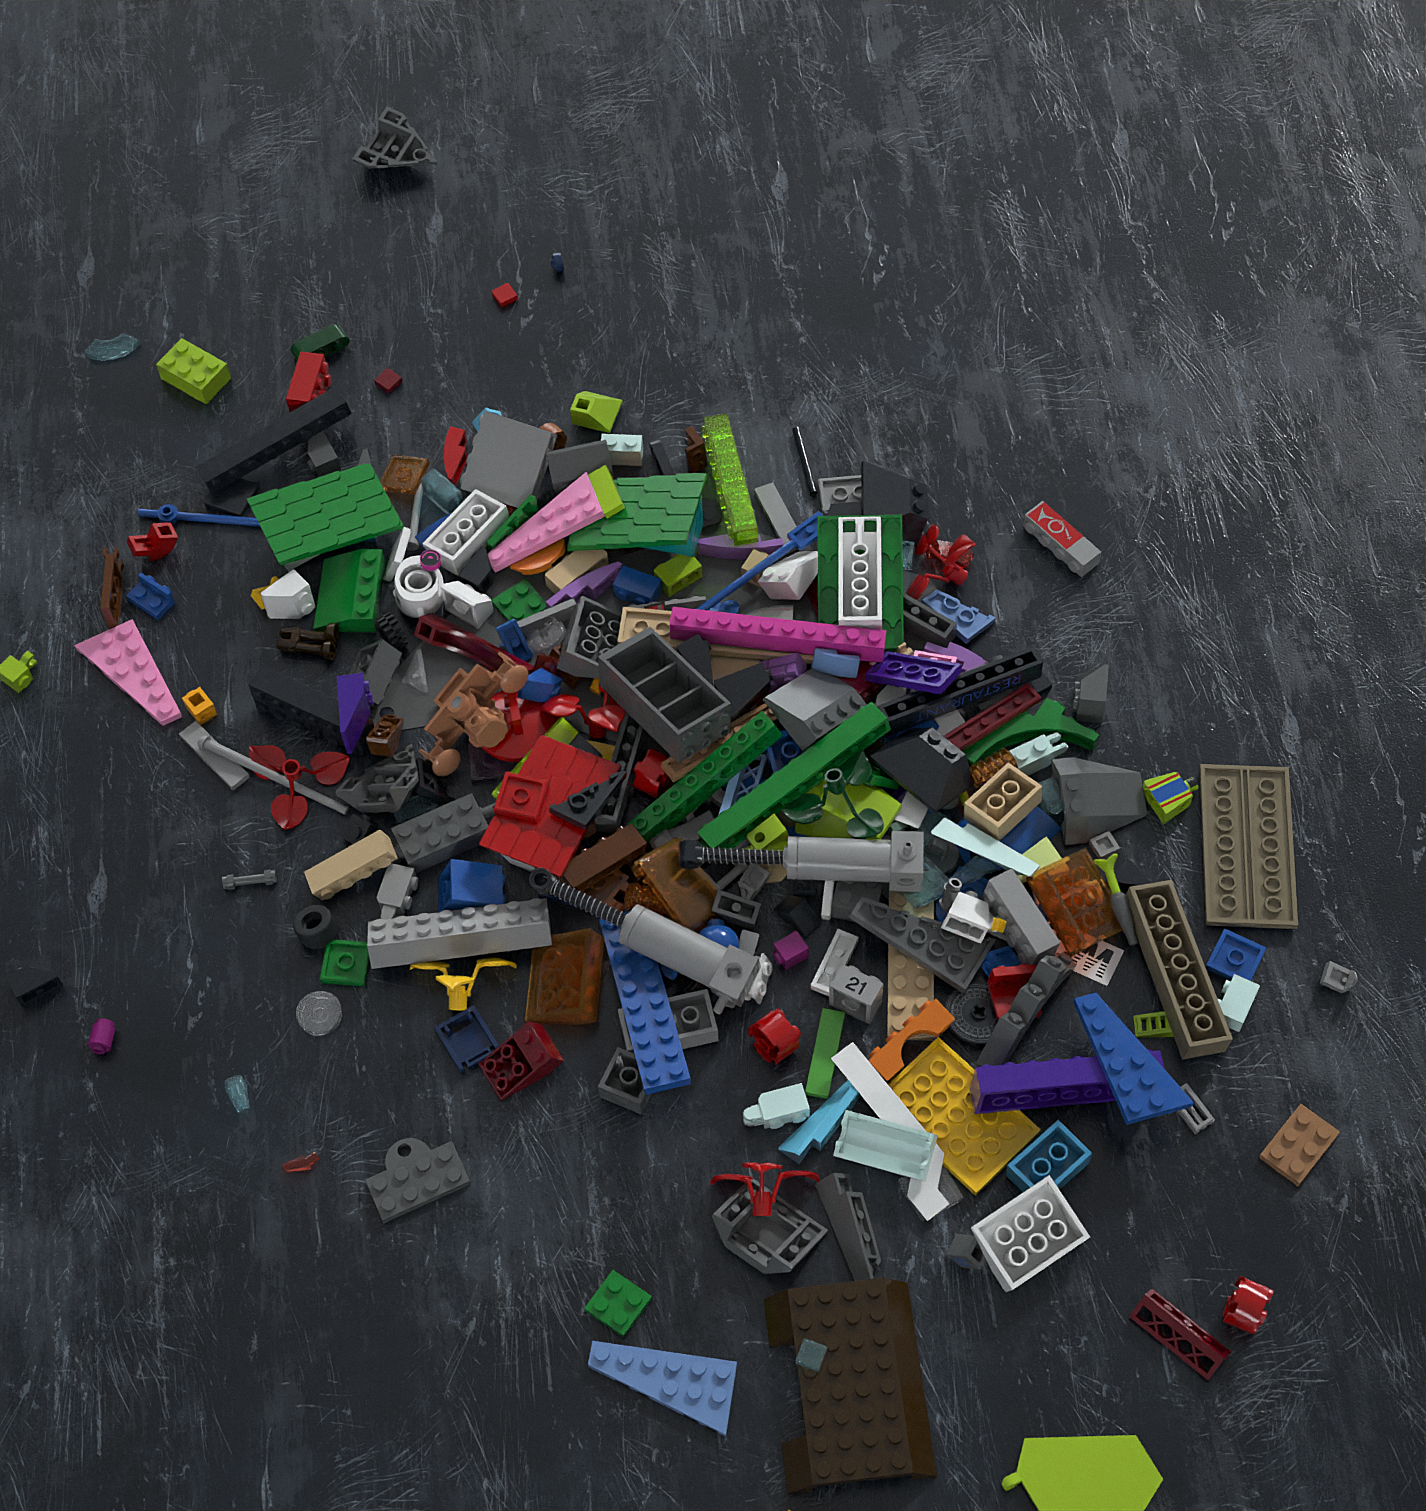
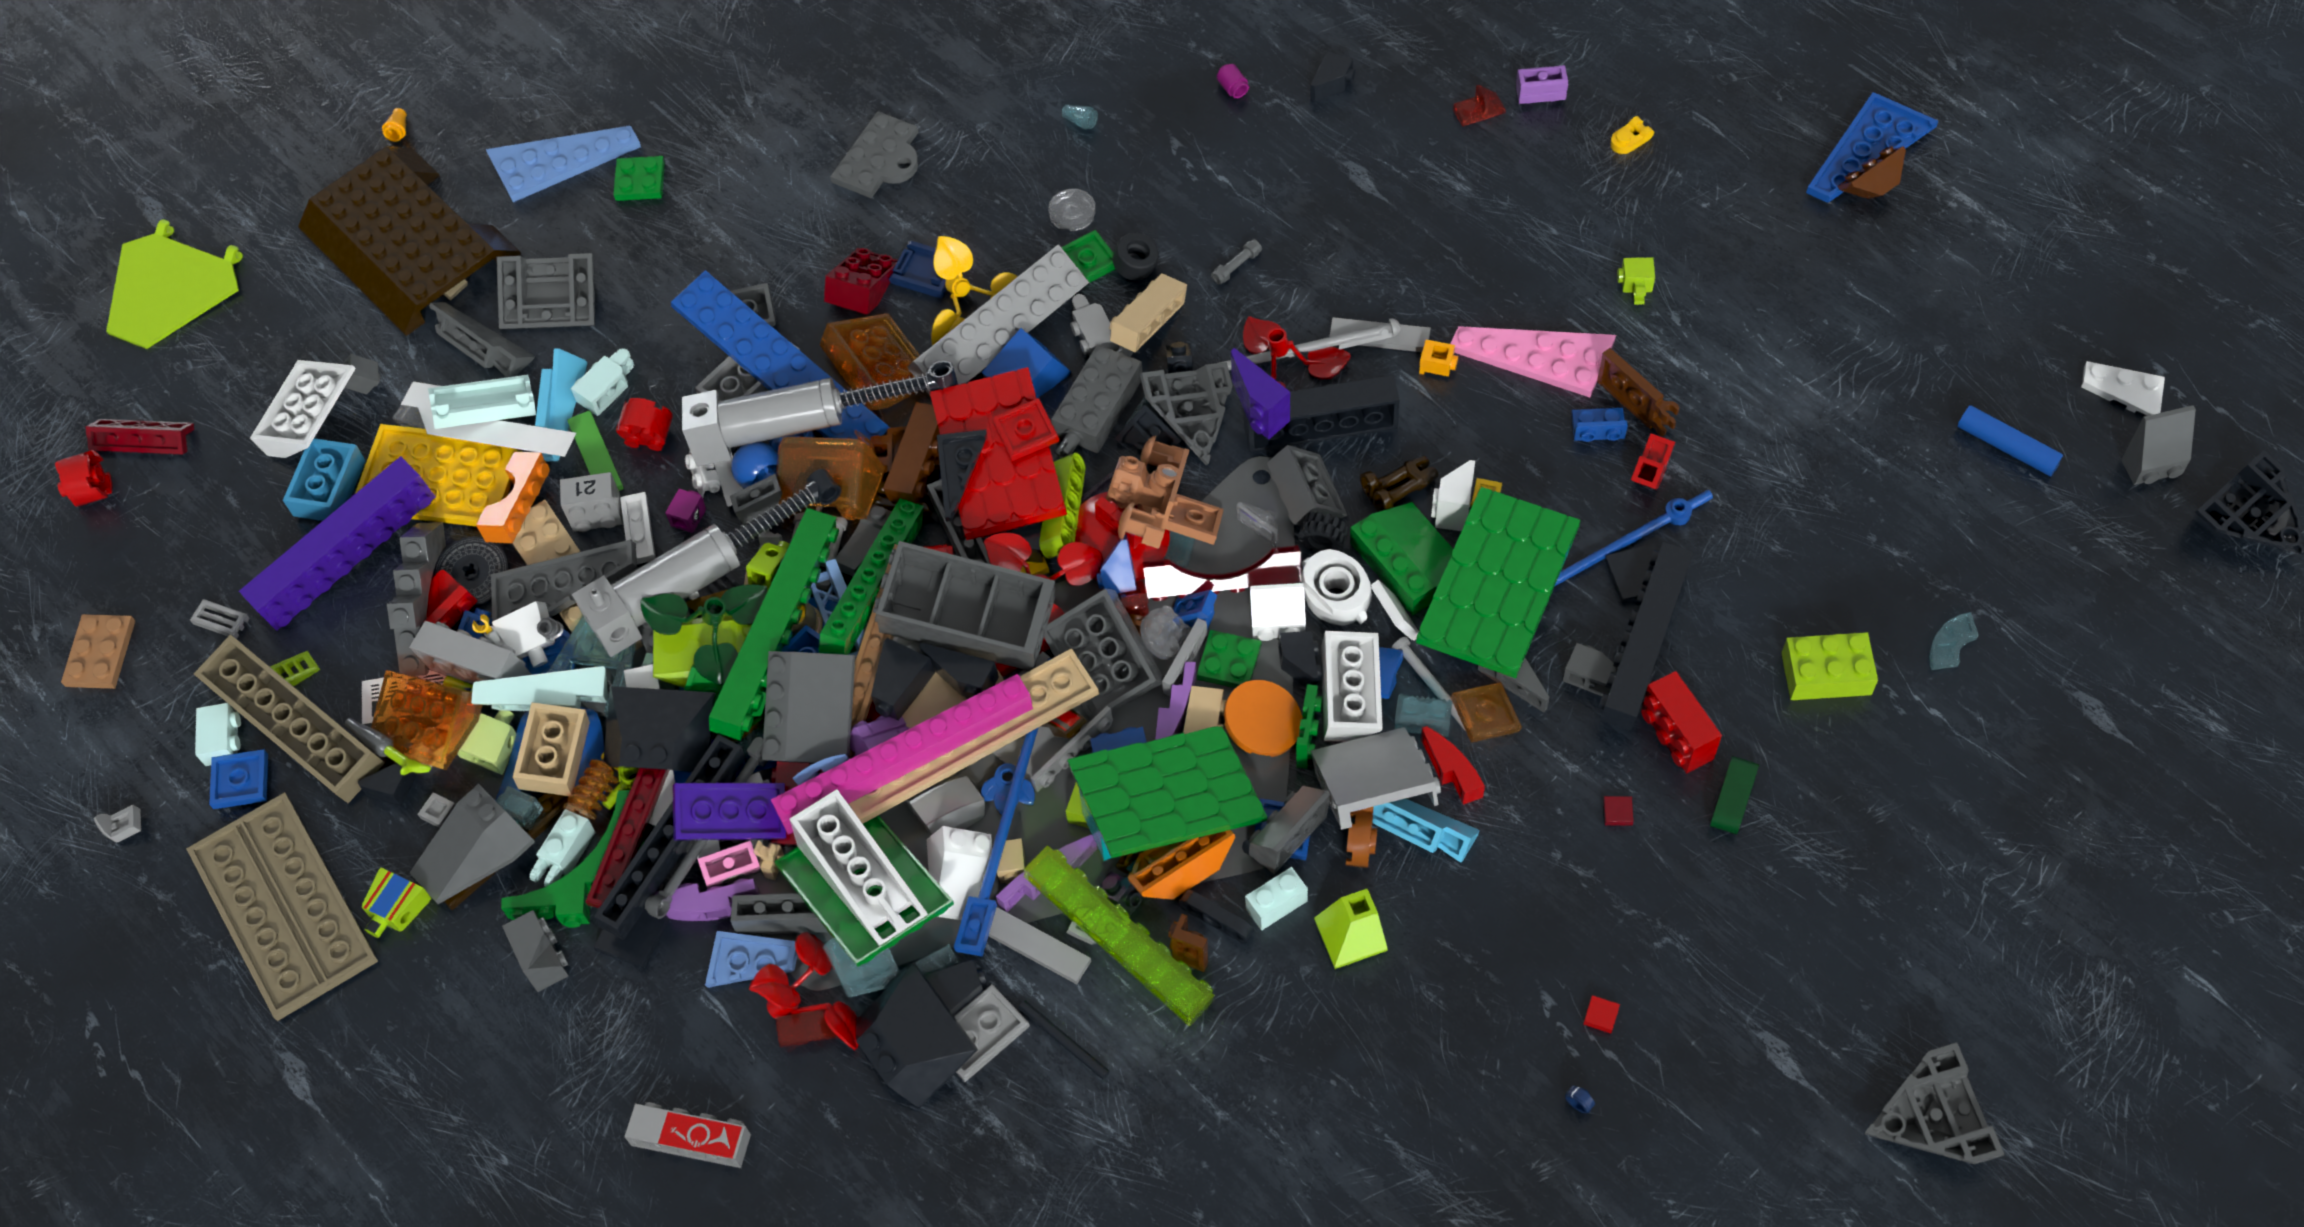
camera: 145 degrees right, 0 degrees up
(300, 1163) = (981, 108): clear red bar -> none
(385, 736) = (1231, 439): reddish brown slope -> none
(430, 560) = (1340, 602): tile -> none
(562, 516) = (1258, 749): bright pink wing -> none
(606, 491) = (1225, 796): lime tile -> none
(761, 1200) = (554, 279): red plant -> none
(811, 1355) = (439, 213): clear light blue tile -> none
(1133, 1074) = (274, 569): blue wing -> none

